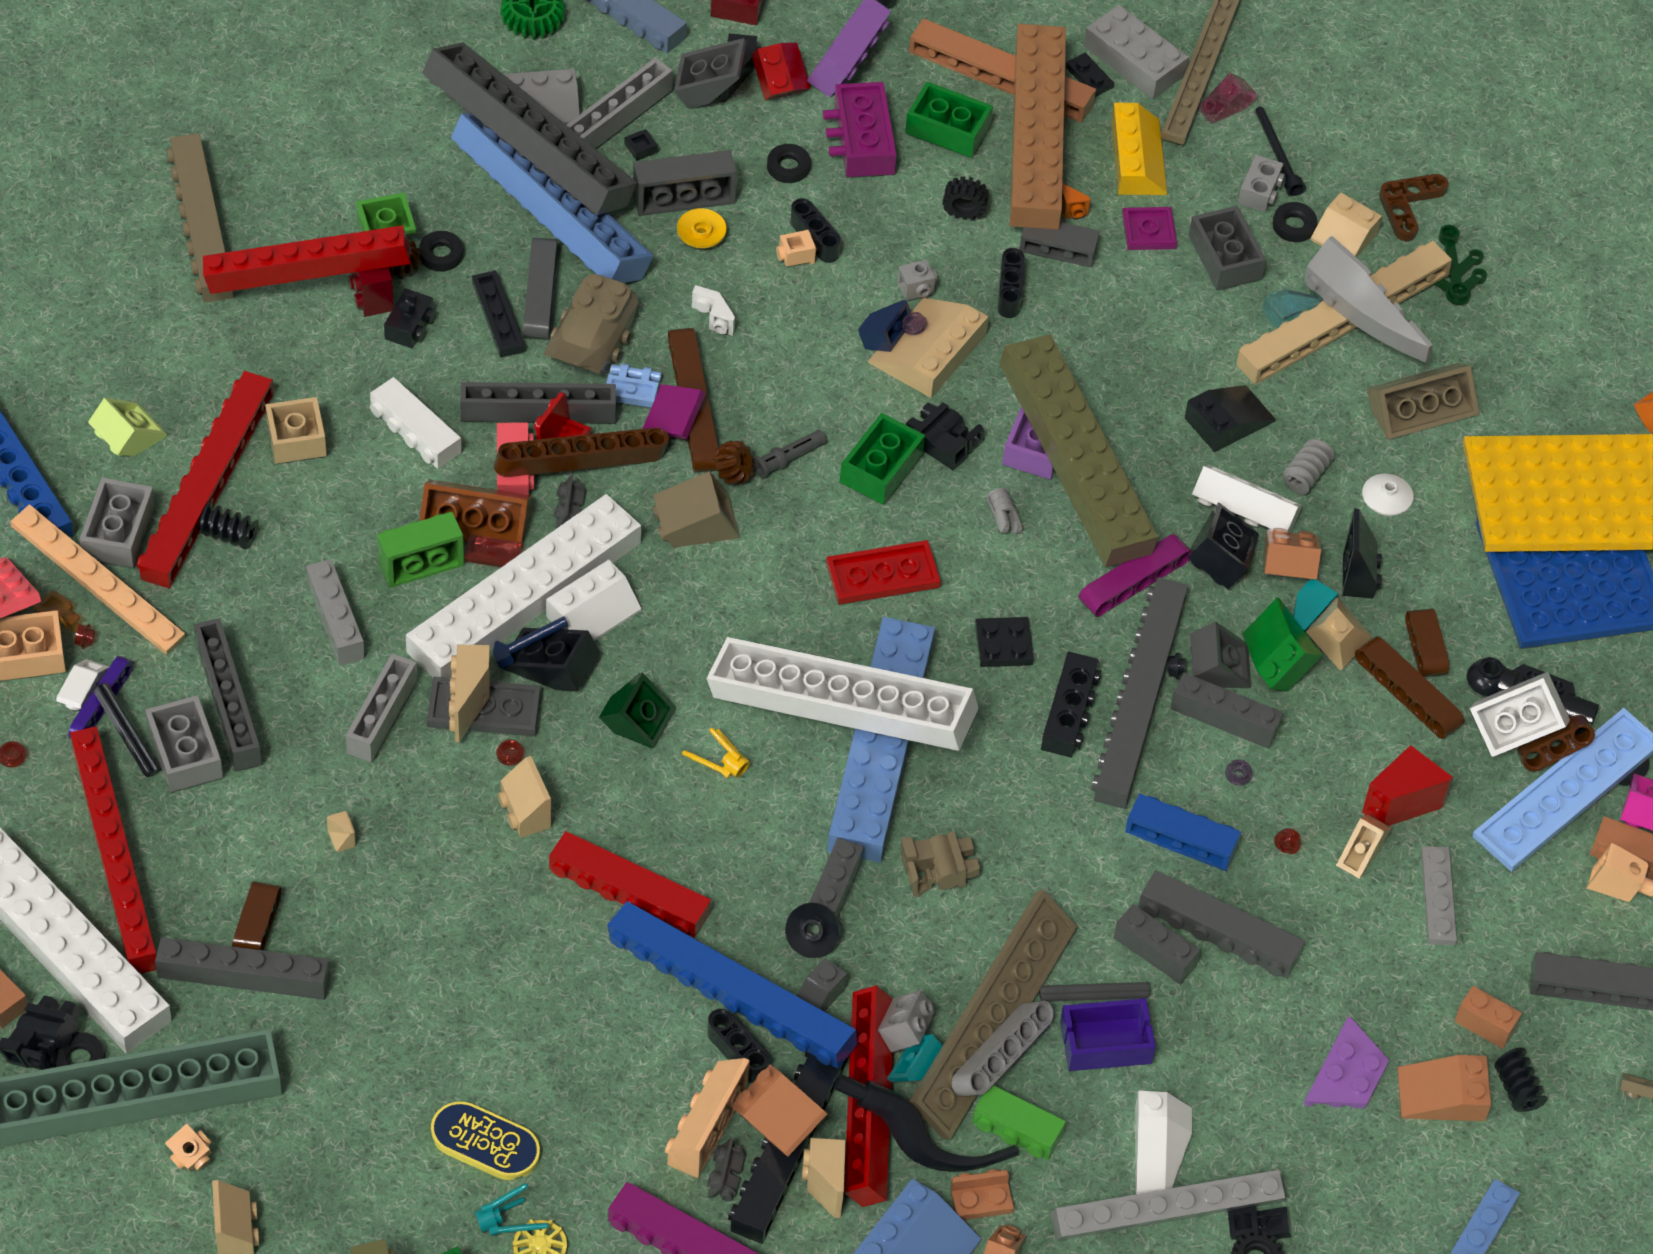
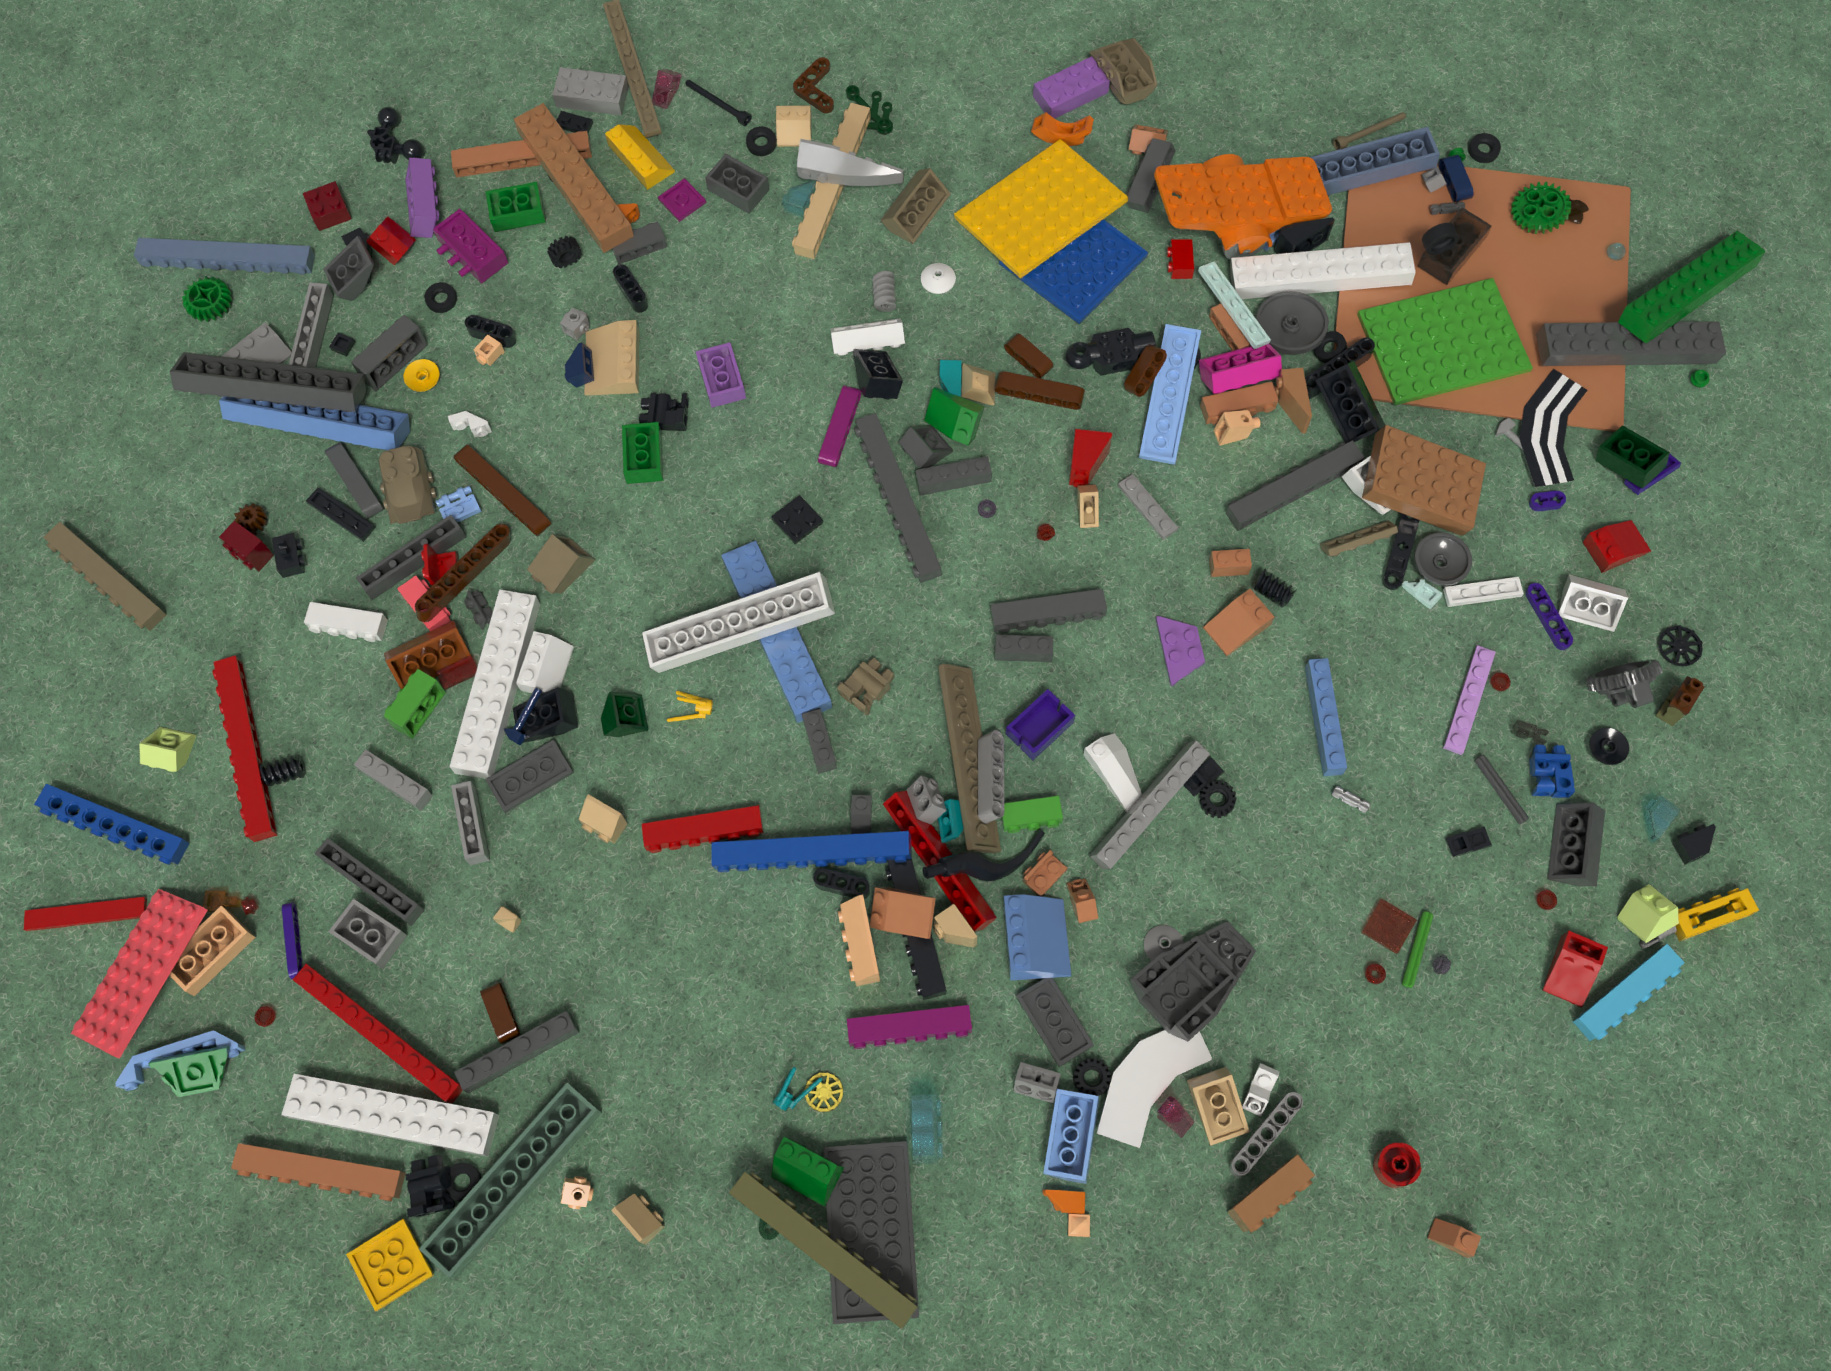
camera: 30 degrees left, 15 degrees up
(81, 683) = (272, 938): white slope -> none
(97, 579) = (228, 864): light nougat plate -> none
(117, 522) = (211, 817): light grey brick -> none
(126, 729) = (324, 950): black axle -> none
(295, 430) = (276, 678): tan brick -> none
(306, 259) = (197, 564): red brick -> none
(385, 213) = (223, 500): bright green slope -> none
(441, 238) = (265, 489): black tyre -> none
(468, 686) = (514, 774): tan slope -> none
(485, 1140) = (742, 1051): tile -> none
(509, 752) = (567, 795): clear red plate -> none
(675, 410) = (497, 506): magenta tile -> none
(727, 1159) = (896, 974): dark grey hinge -> none
(734, 462) = (558, 515): reddish brown gear -> none
(779, 457) = (580, 493): dark grey pin -> none
(803, 939) = (829, 788): black dish -> none
(883, 572) = (696, 524): red plate -> none
(914, 323) = (596, 353): plate -> none
(1003, 511) = (736, 437): light grey hinge -> none
(1076, 670) = (858, 507): black brick -> none
(1078, 450) = (754, 371): olive brick -> none
(1102, 991) = (1011, 701): dark grey axle -> none
(1177, 666) = (905, 467): black plate -> none
(1183, 832) = (986, 568): blue brick -> none
(1226, 415) = (815, 290): black slope -> none
(1261, 183) = (724, 129): light grey brick -> none
(1291, 553) = (918, 353): nougat brick -> none
(1360, 560) = (957, 332): black slope -> none
(1520, 714) = (1117, 367): white brick -> none

